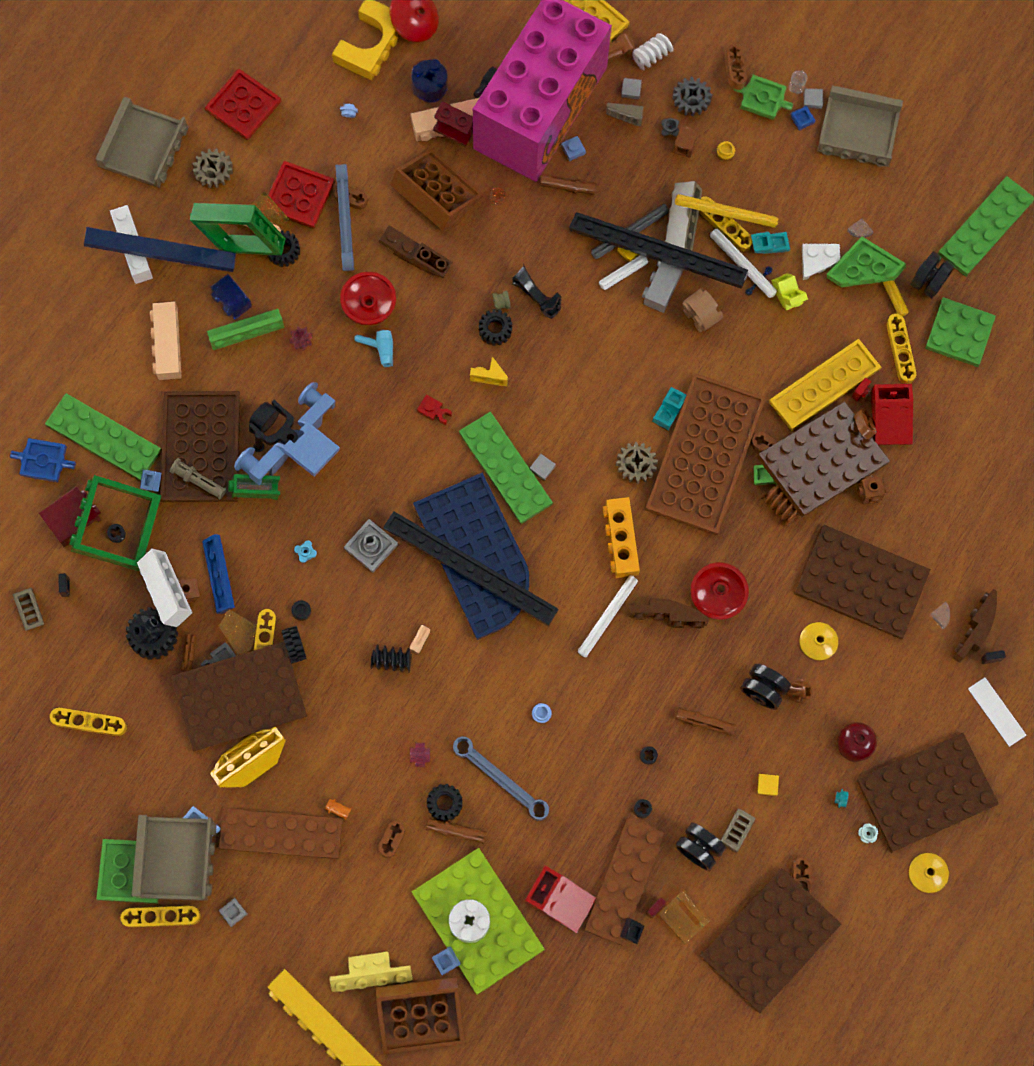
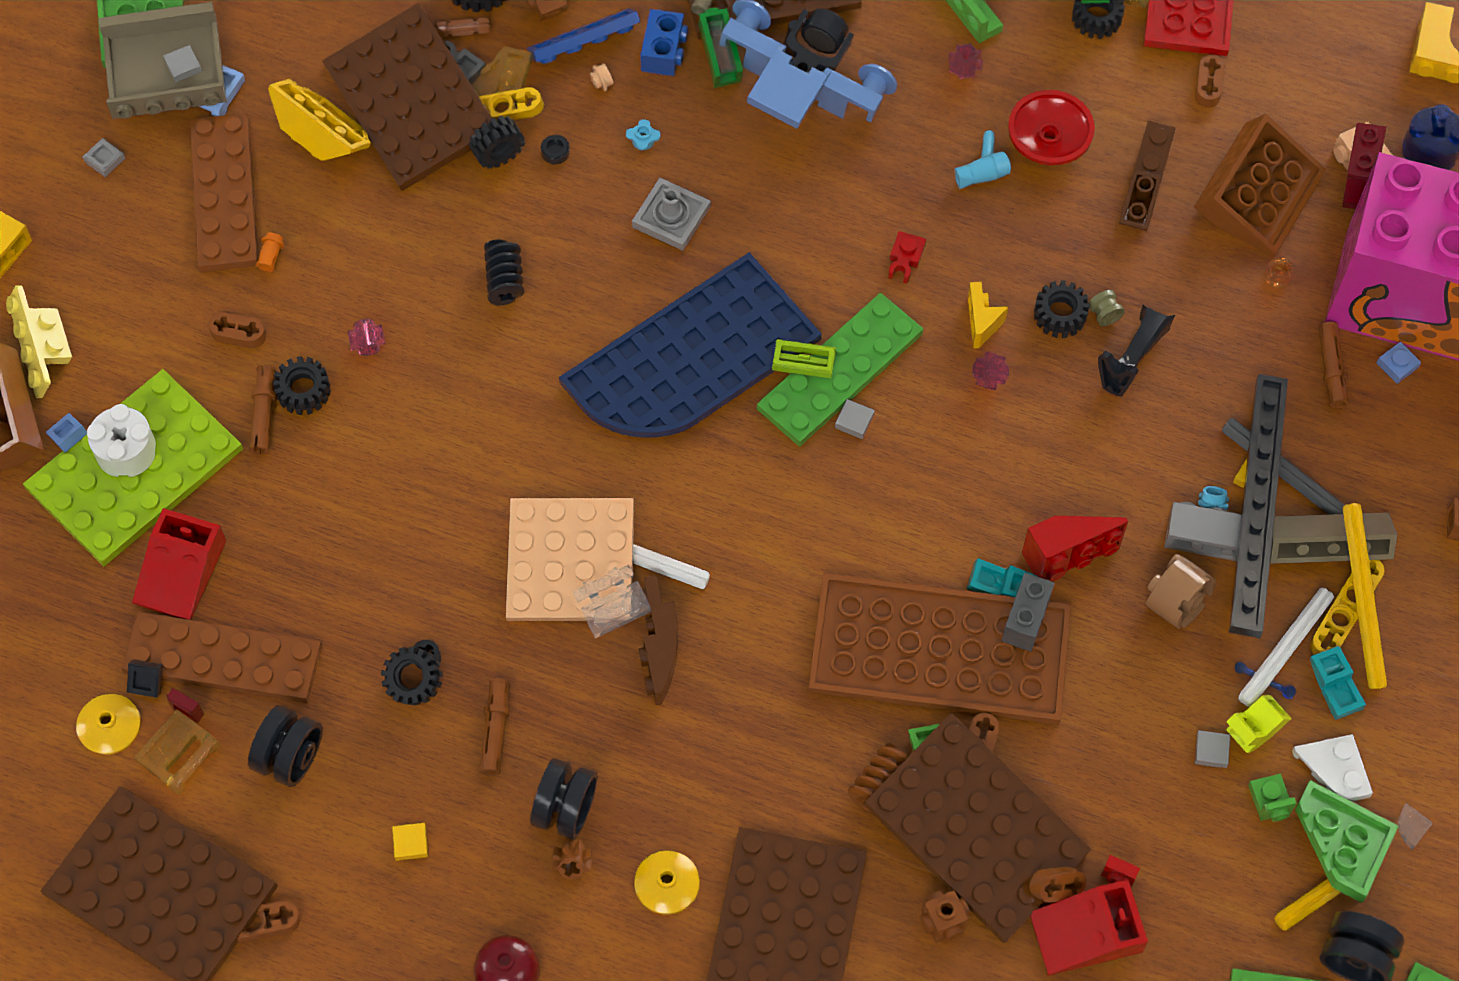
camera: 80 degrees right, 10 degrees down
(160, 916) = (85, 73): yellow beam -> none
(181, 843) = (182, 63): none -> light grey tile
(235, 527) = (660, 42): none -> blue brick
(253, 569) = (601, 77): none -> light nougat plate
(344, 217) = (1108, 93): sand blue piece -> none
(348, 110) = (1346, 48): light blue plate -> none
(419, 639) = (543, 306): light nougat piece -> none
(471, 568) = (661, 346): black plate -> none
(494, 500) = (803, 363): none -> lime tile
(500, 778) = (351, 455): sand blue piece -> none
(530, 378) = (990, 370): none -> clear pink gear
(541, 713) = (463, 491): light blue plate -> none
(605, 655) = (558, 548): none -> light nougat plate
(621, 508) = (756, 561): light orange brick -> none
(623, 272) = (1209, 470): white axle -> none
(637, 805) = (344, 653): black bush -> none
(642, 276) = (1213, 497): none -> medium azure plate
(643, 461) = (886, 556): dark tan gear -> none
(644, 961) = (116, 734): none -> yellow dish
(650, 632) = (616, 608): none -> clear plate
(661, 371) = (1071, 542): none -> red slope
(673, 773) = (394, 670): none -> black tyre
(700, 396) = (1028, 612): none -> dark grey brick
(718, 603) = (703, 693): red dish -> none
(728, 843) = (299, 809): dark tan slope -> none
(796, 321) = (1212, 749): none -> light grey tile
(824, 384) = (1113, 812): yellow plate -> none
(832, 297) = (1271, 798): none -> bright green bracket
(841, 798) = (406, 959): teal plate -> none
(901, 348) = (1213, 924): yellow beam -> none

